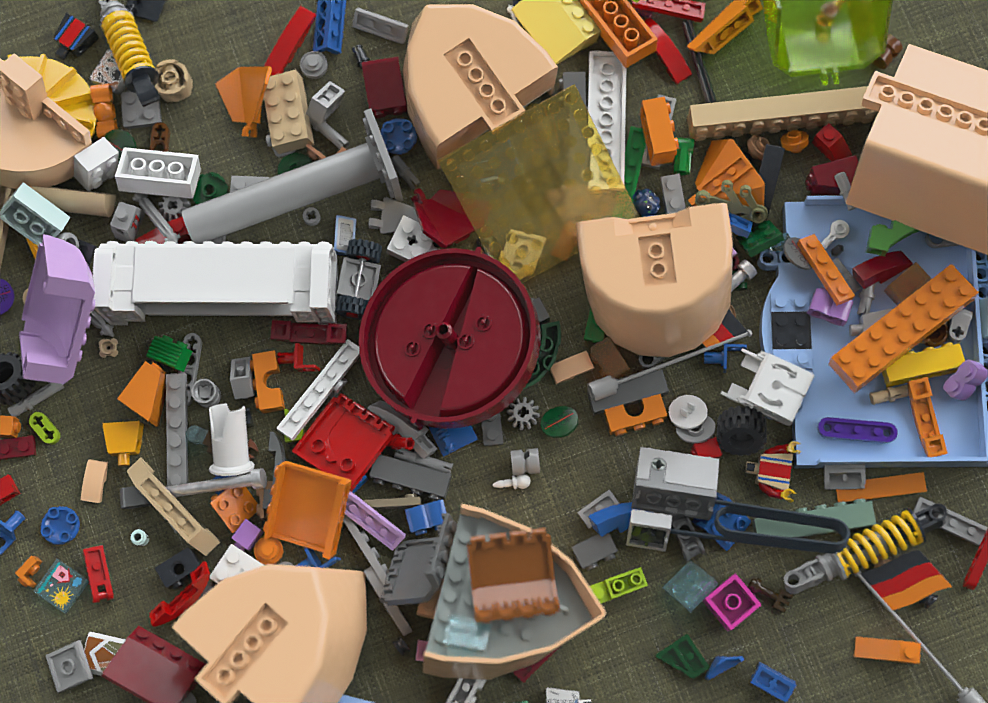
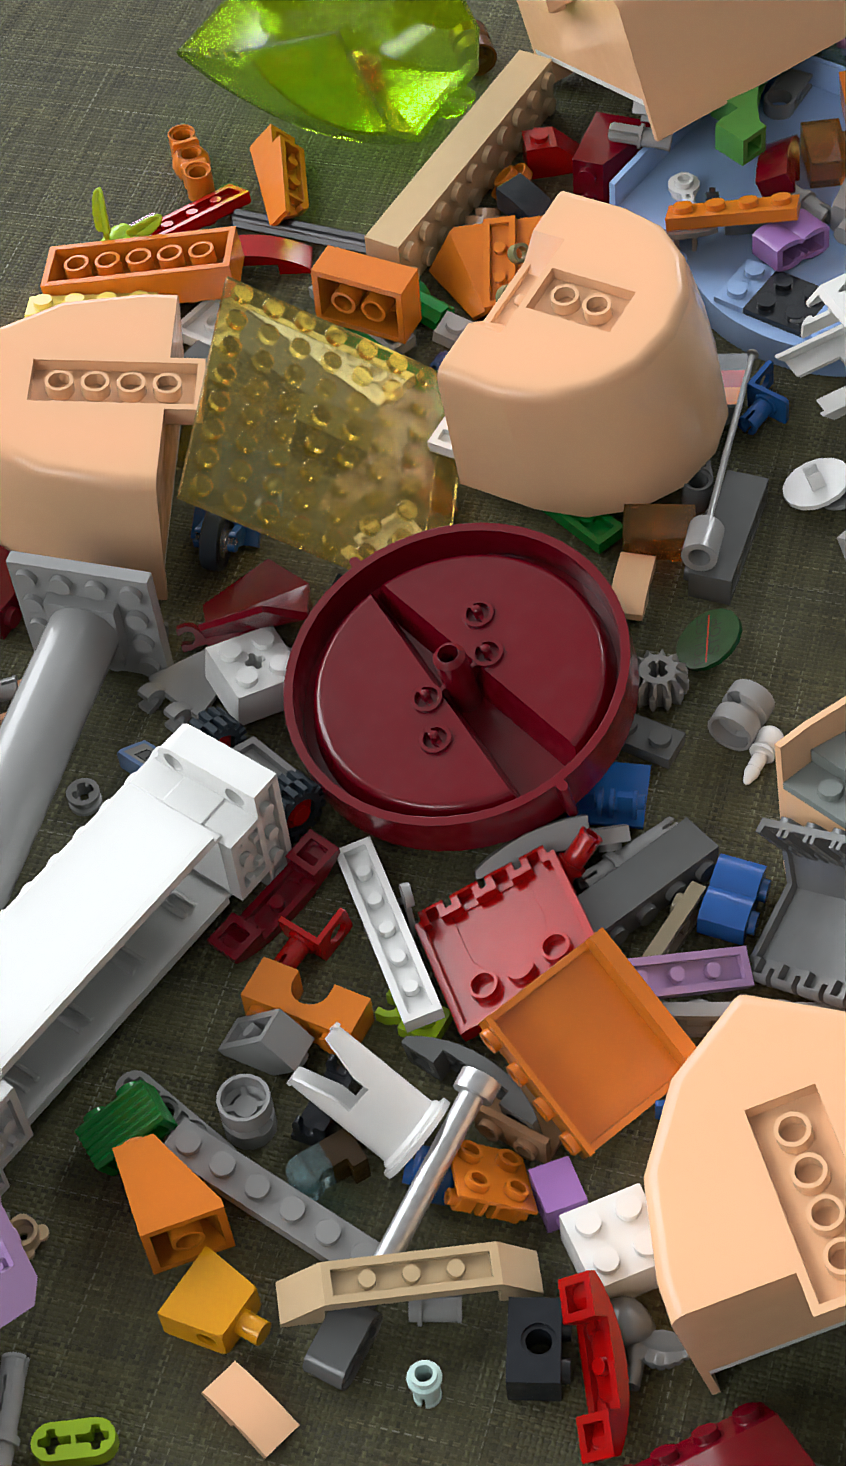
camera: 55 degrees left, 25 degrees down
(268, 551) = (610, 1171): orange plate -> none
(619, 421) = (767, 566): orange arch -> none

